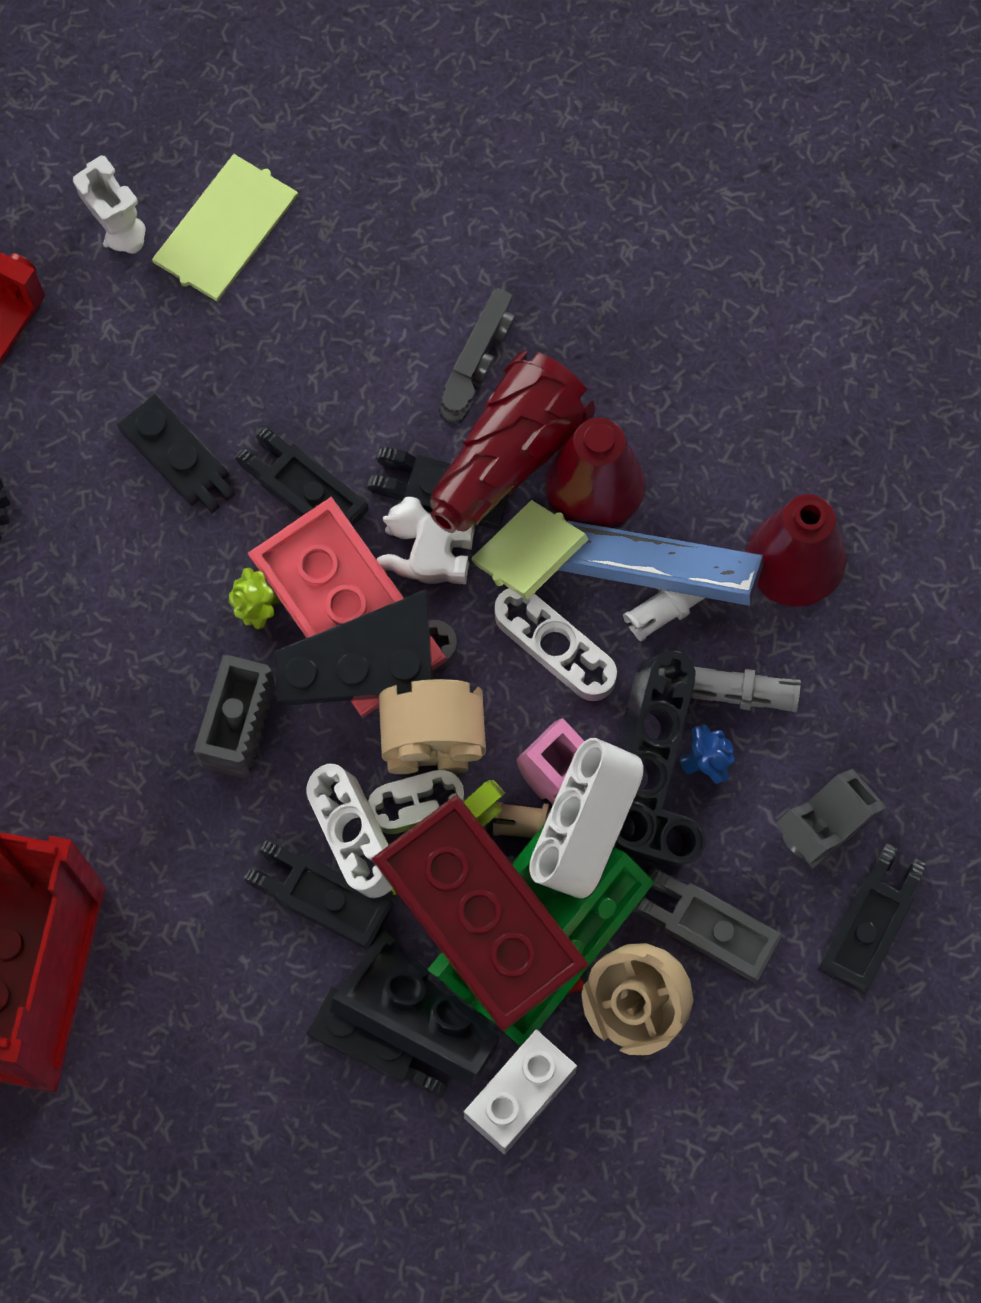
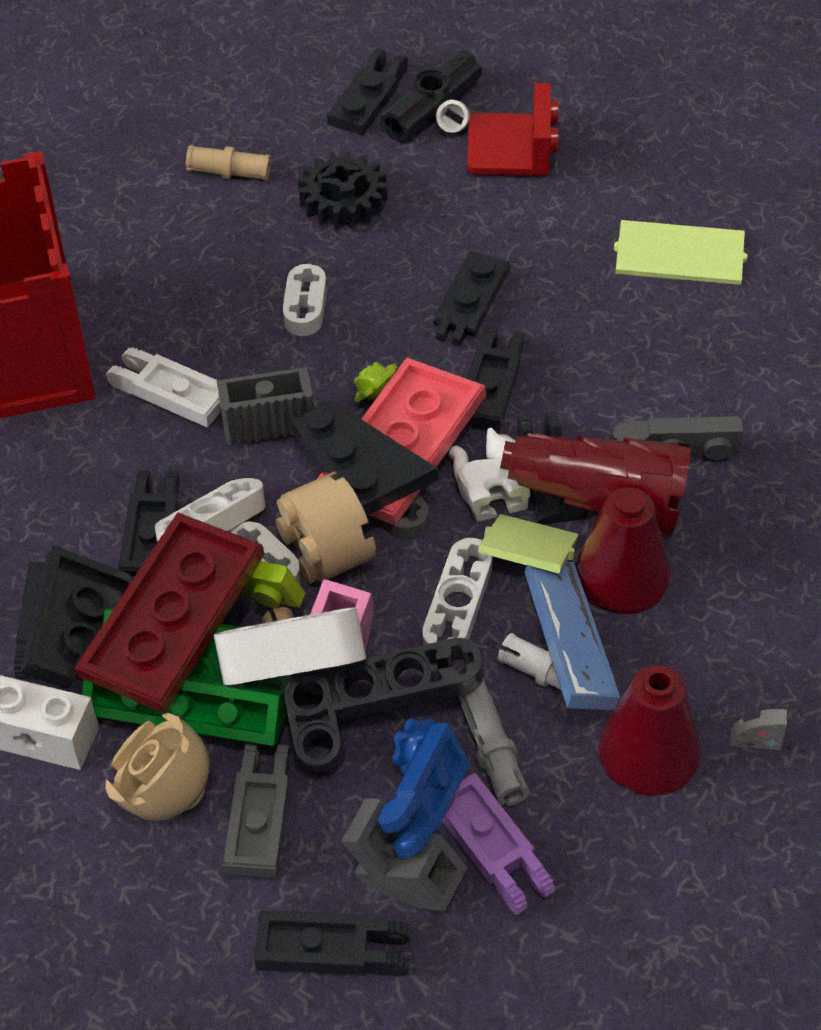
camera: 65 degrees right, 20 degrees down
(95, 607) = (297, 299): none -> white beam
(111, 206) = (636, 163): white animal -> none
(142, 802) = (167, 385): none -> white hinge
(784, 768) = (425, 791): none -> blue hinge
(830, 736) = (494, 842): none -> medium lavender hinge
(833, 449) = (761, 732): none -> light grey tile

